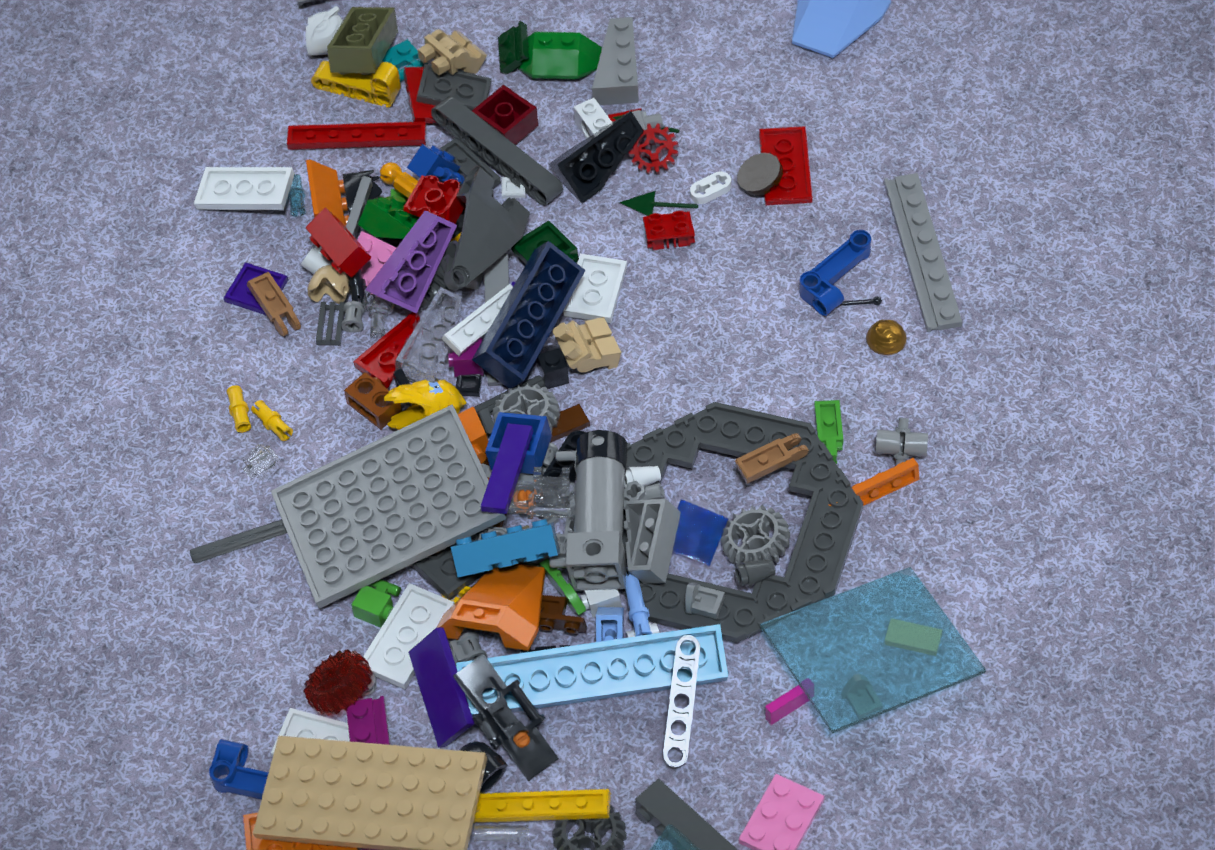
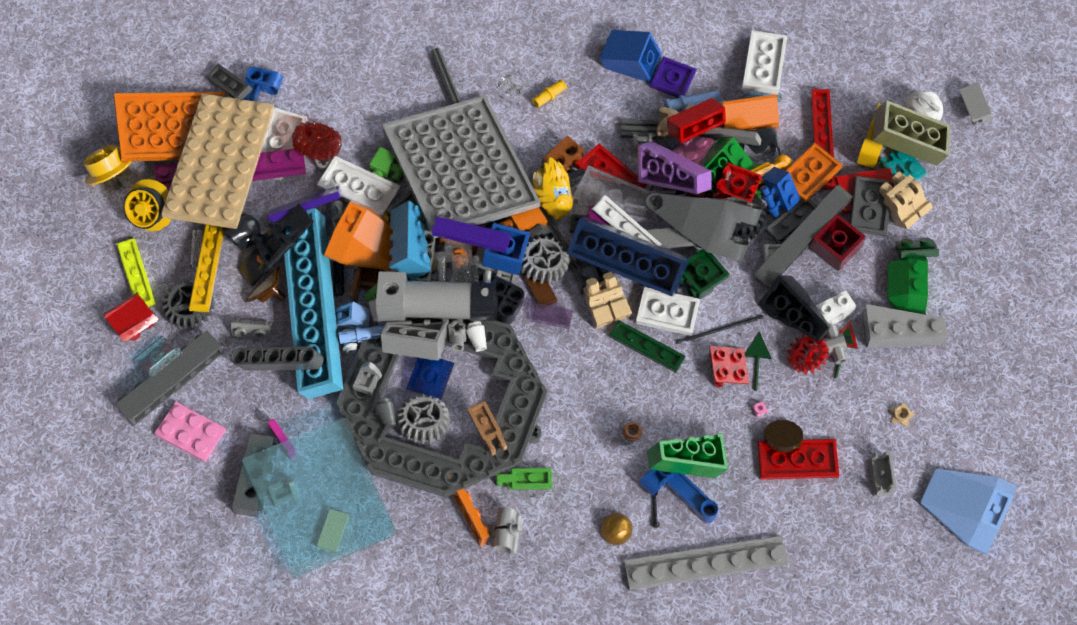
camera: 85 degrees right, 10 degrees up
(220, 328) = (631, 54): none -> blue slope
(231, 805) = (228, 82): none -> dark grey plate
(238, 409) = (560, 71): yellow pin -> none
(273, 302) = (653, 87): medium nougat hinge -> none
(296, 273) = (682, 102): none -> light blue pin
(402, 138) = (813, 171): none -> orange tile
(565, 735) = (267, 288): none -> shield
(602, 407) = (552, 315): none -> clear purple tile
(616, 240) = (719, 329): none -> black piece
(626, 742) = (245, 329): none -> light grey hinge
(643, 310) = (647, 346): none -> dark green tile
(710, 187) = (769, 402): white beam -> none
(722, 200) = (759, 408): none -> bright pink piece
(724, 66) = (906, 414): none -> tan plate
(758, 317) = (632, 426): none -> nougat plate
(796, 250) = (690, 456): none -> green wedge
(802, 85) = (882, 474): none -> light grey hinge
(852, 741) = (250, 505): none -> dark grey brick

